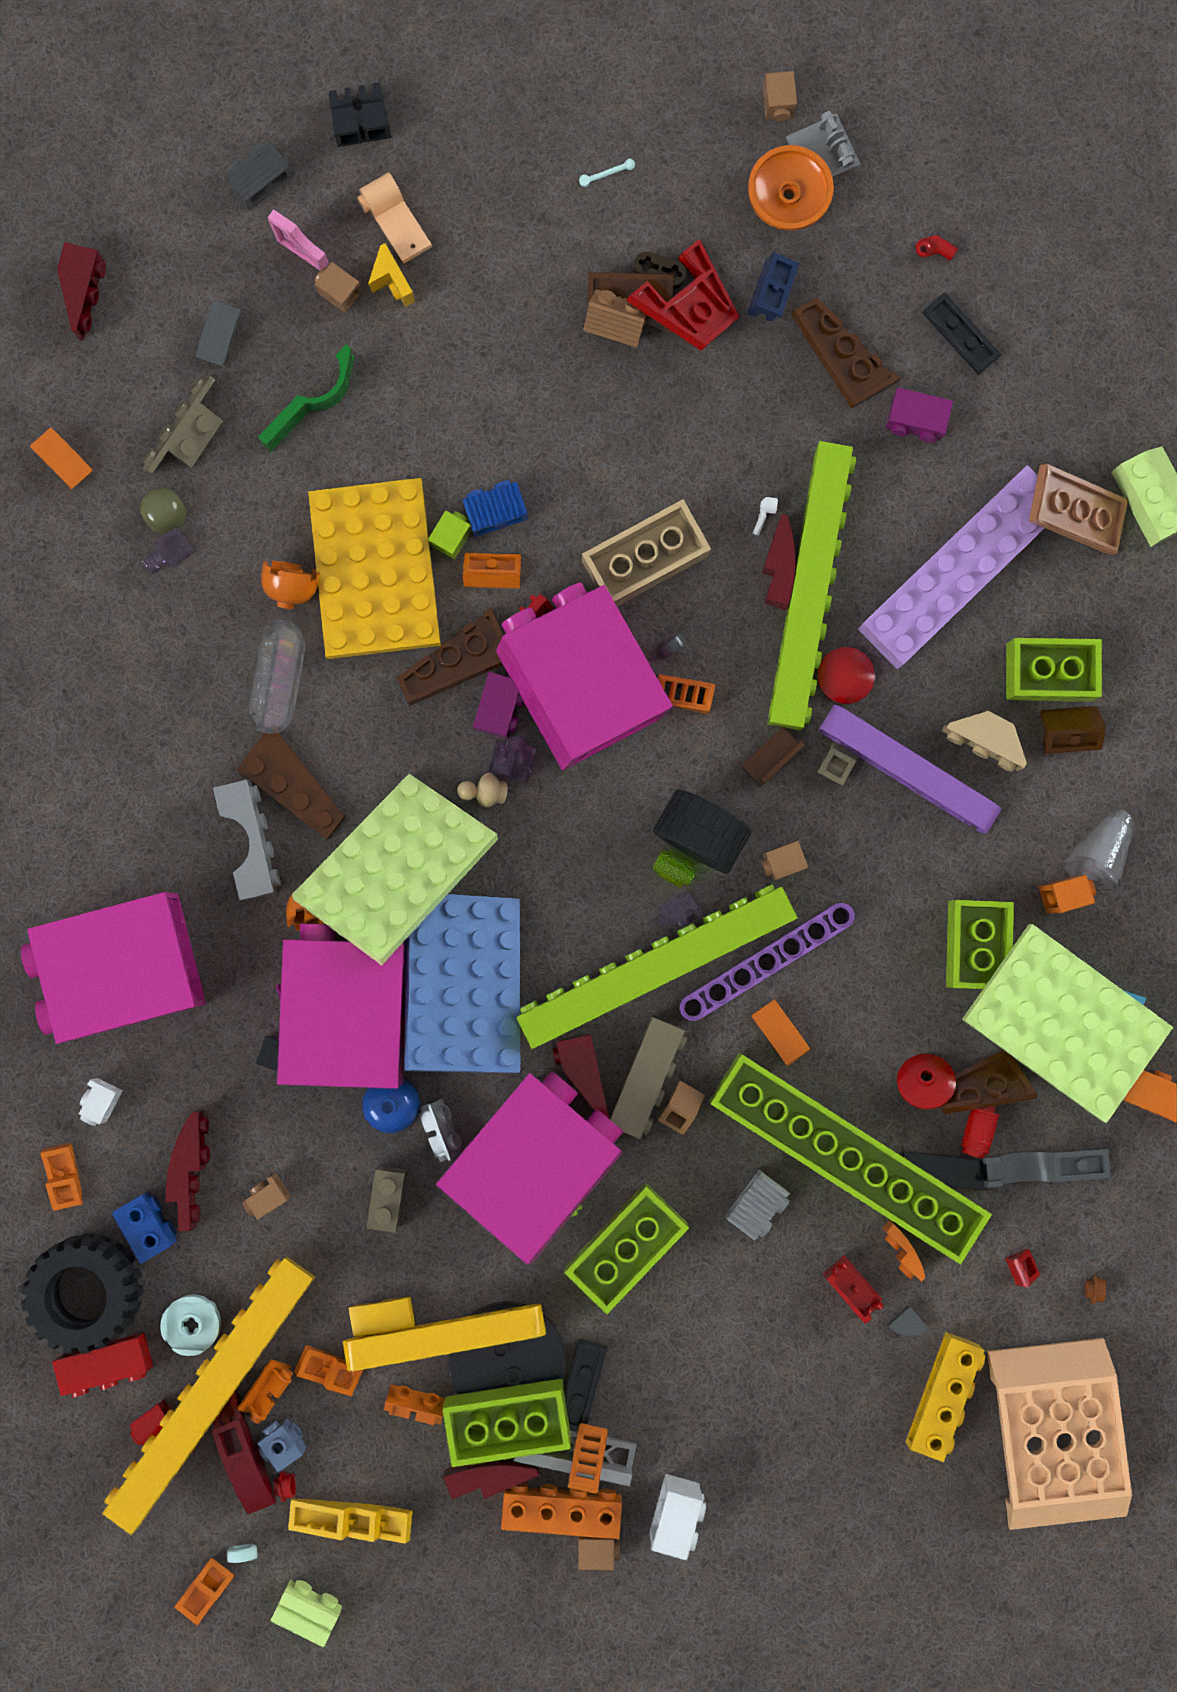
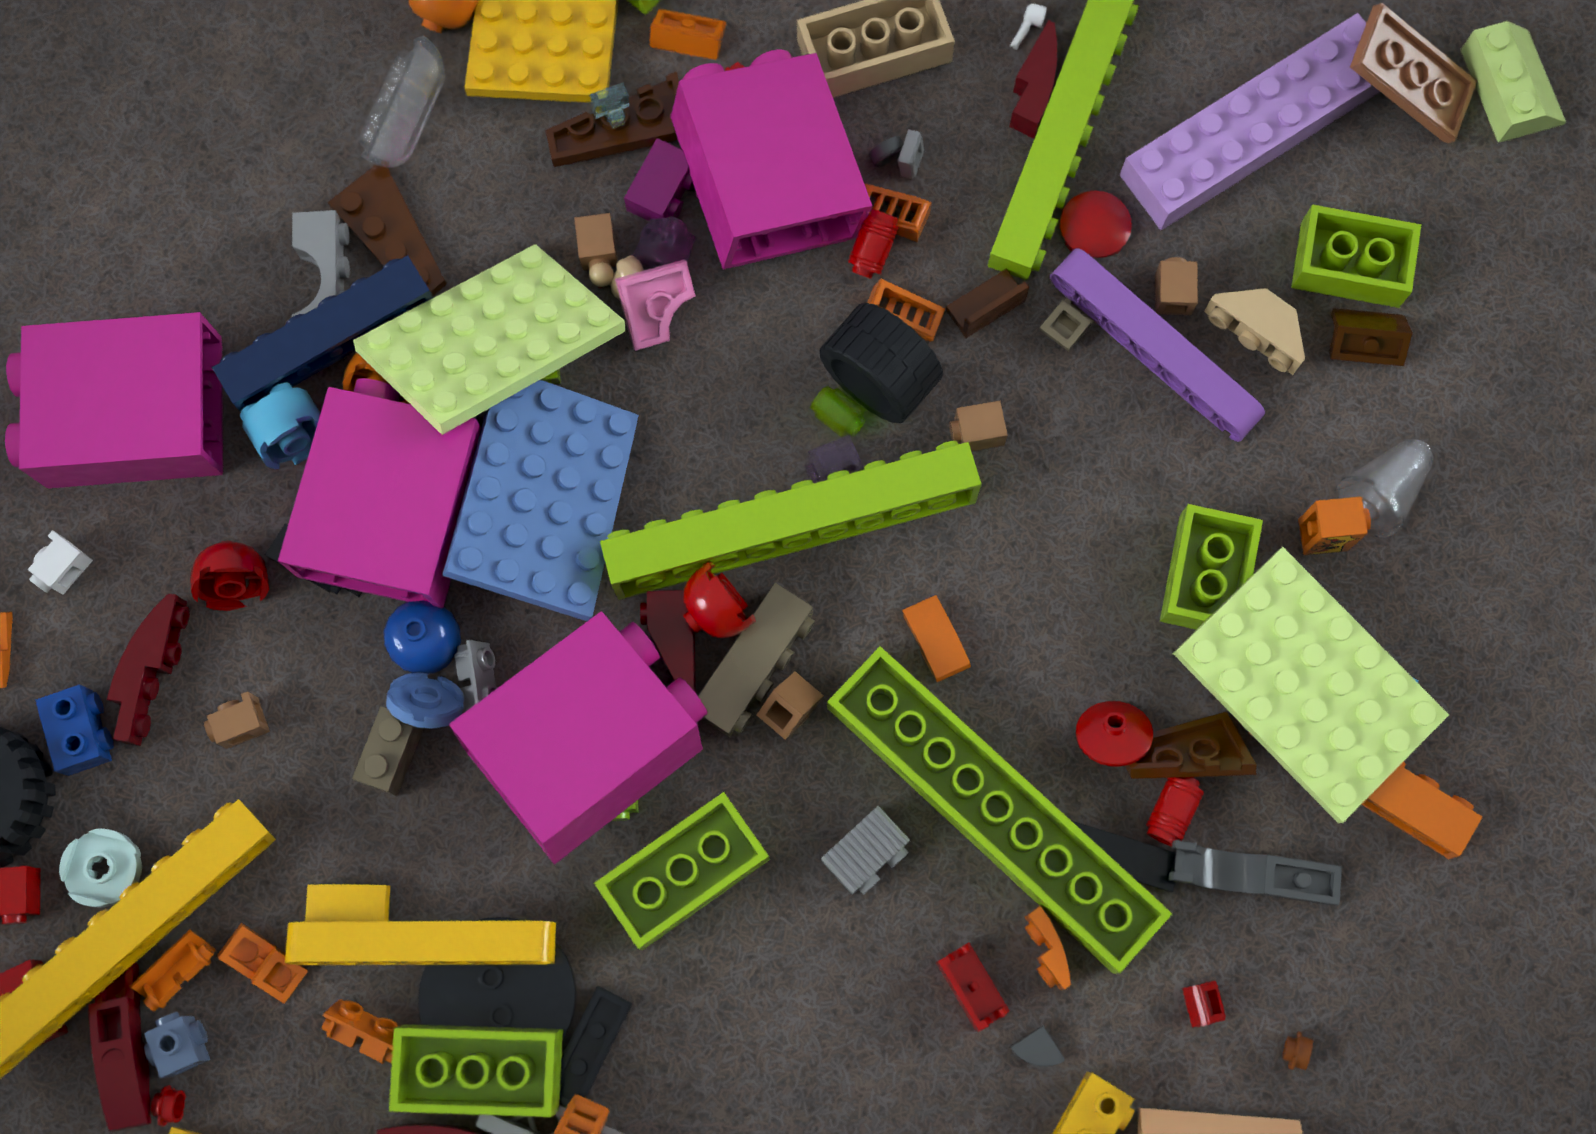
camera: 15 degrees right, 10 degrees down
(232, 1085) = (221, 574): none -> red cylinder
(248, 963) = (281, 425): none -> medium azure brick
(264, 888) = (321, 335): none -> dark blue brick
(406, 1156) = (424, 701): none -> medium blue tile
(446, 650) = (611, 103): none -> clear light blue tile
(457, 764) = (596, 240): none -> medium nougat brick
(512, 806) = (652, 299): none -> bright pink tile
(612, 1046) = (714, 604): none -> red cylinder
(676, 727) = (873, 243): none -> red head
(684, 774) = (894, 293): none -> orange slope
(691, 645) = (911, 154): none -> light grey tile
(780, 960) = (945, 531): medium lavender beam -> none
(917, 718) = (1176, 287): none -> medium nougat brick

